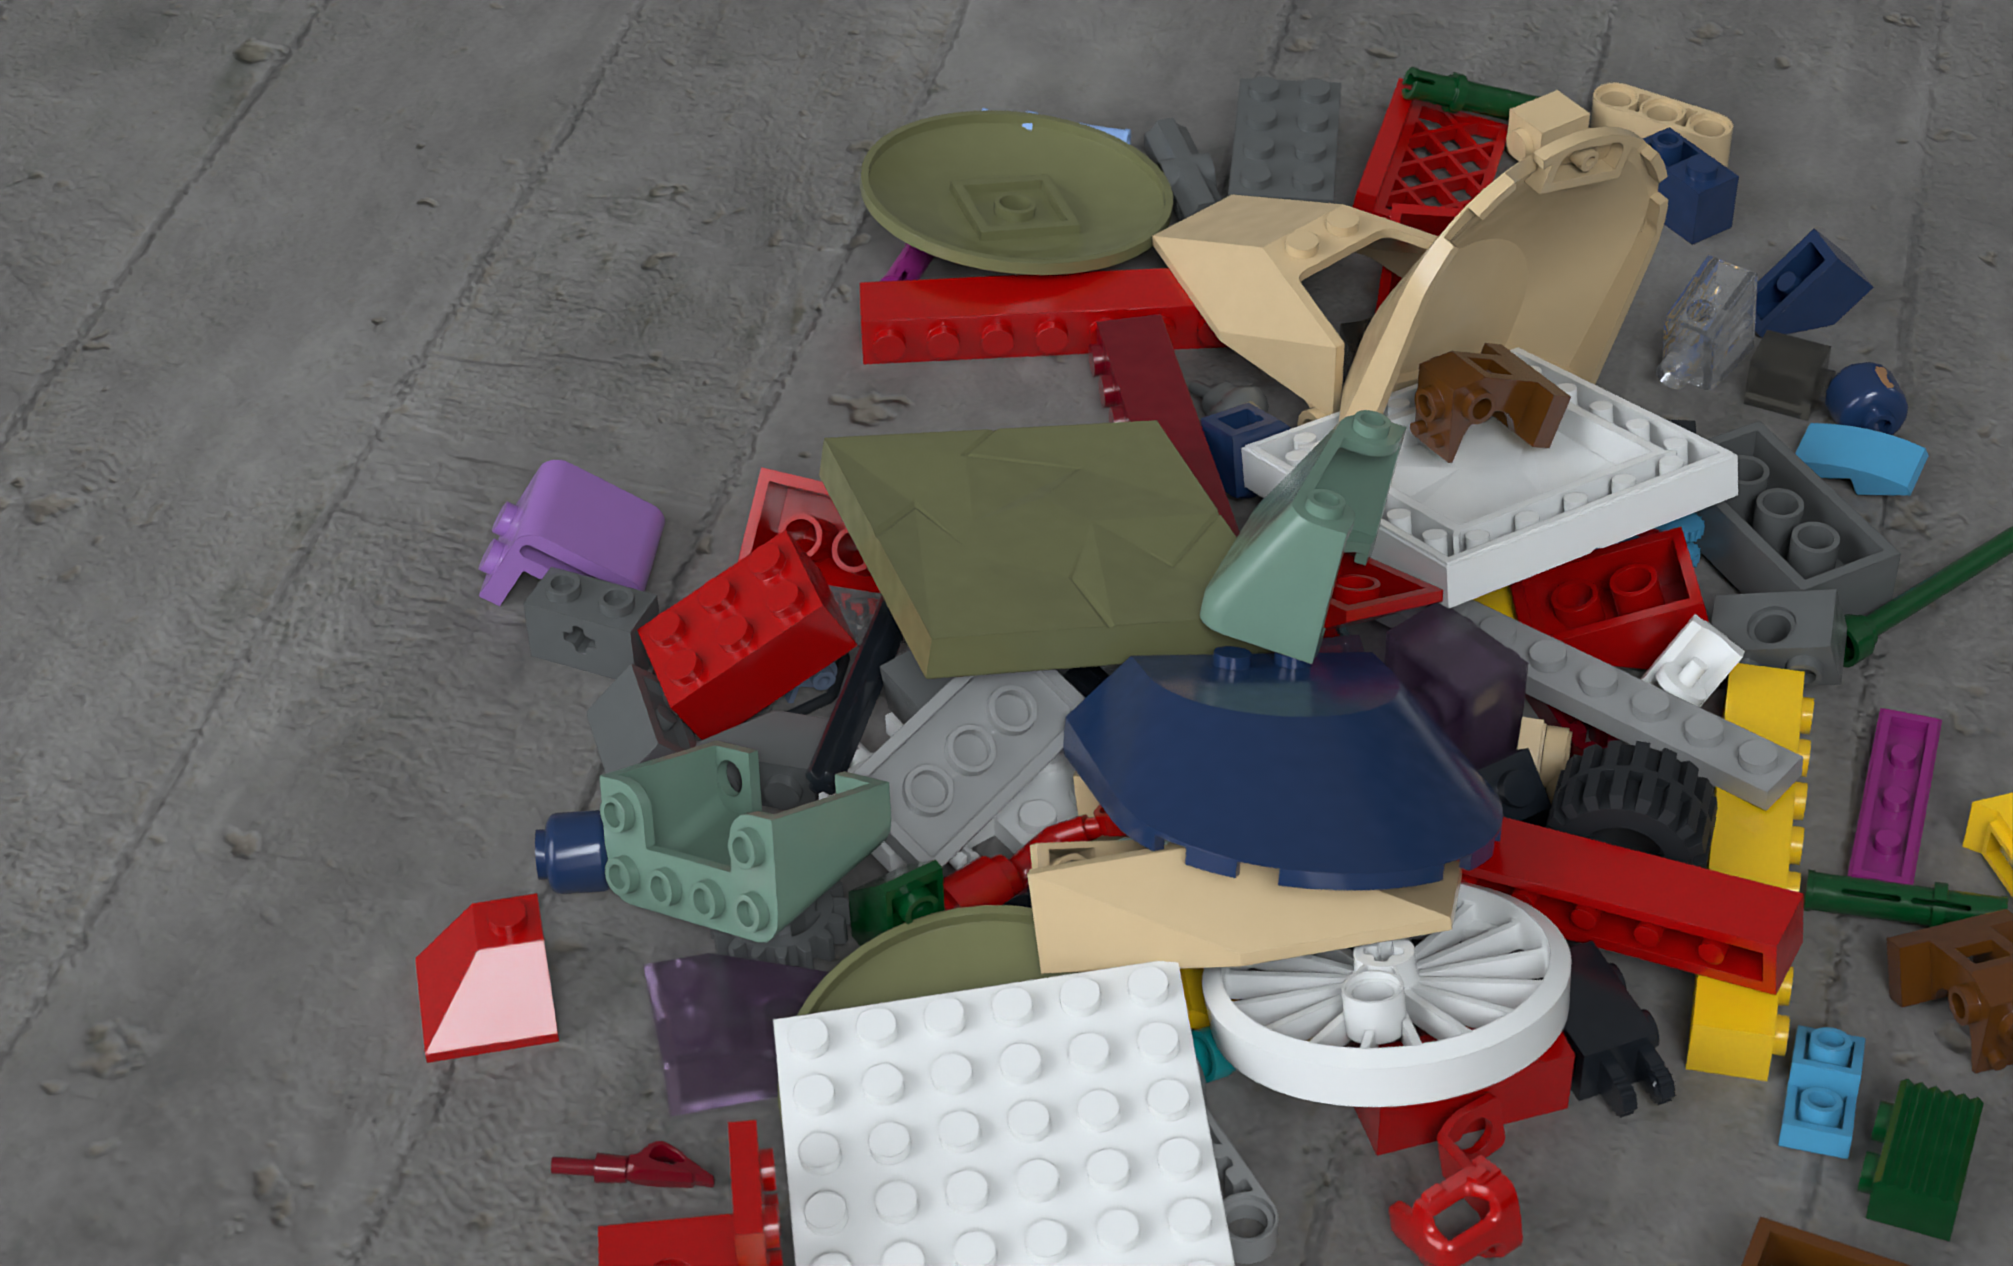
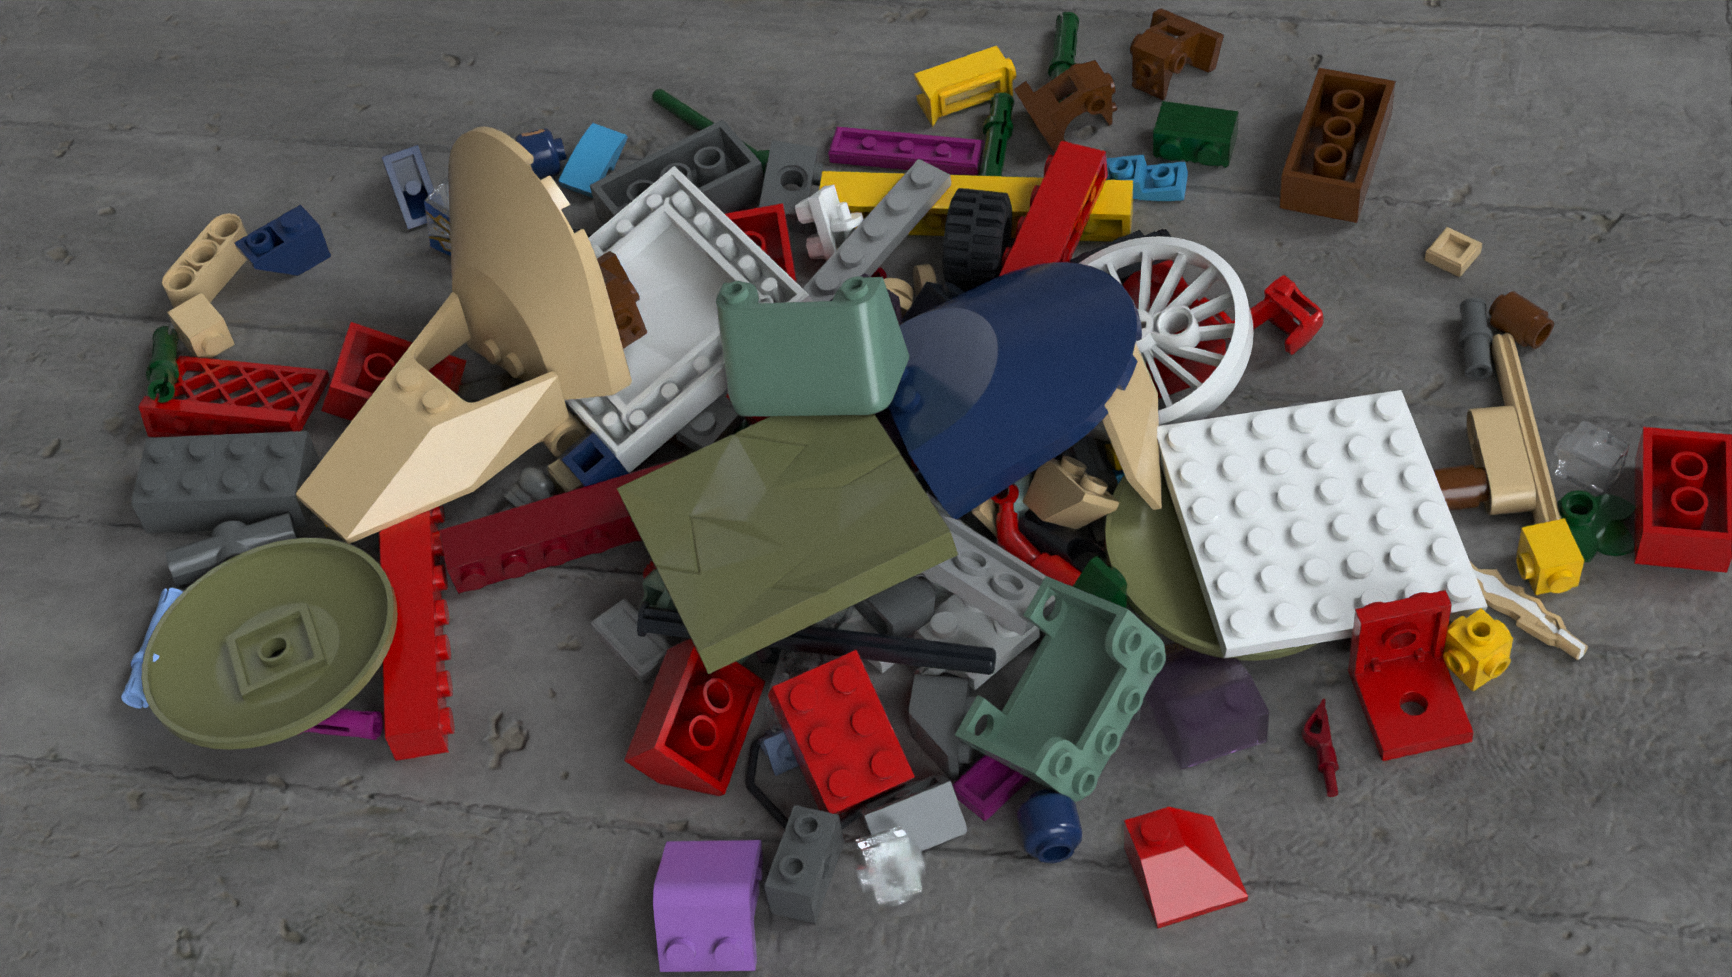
camera: 90 degrees left, 10 degrees up
(561, 691) = (889, 867): none -> clear brick

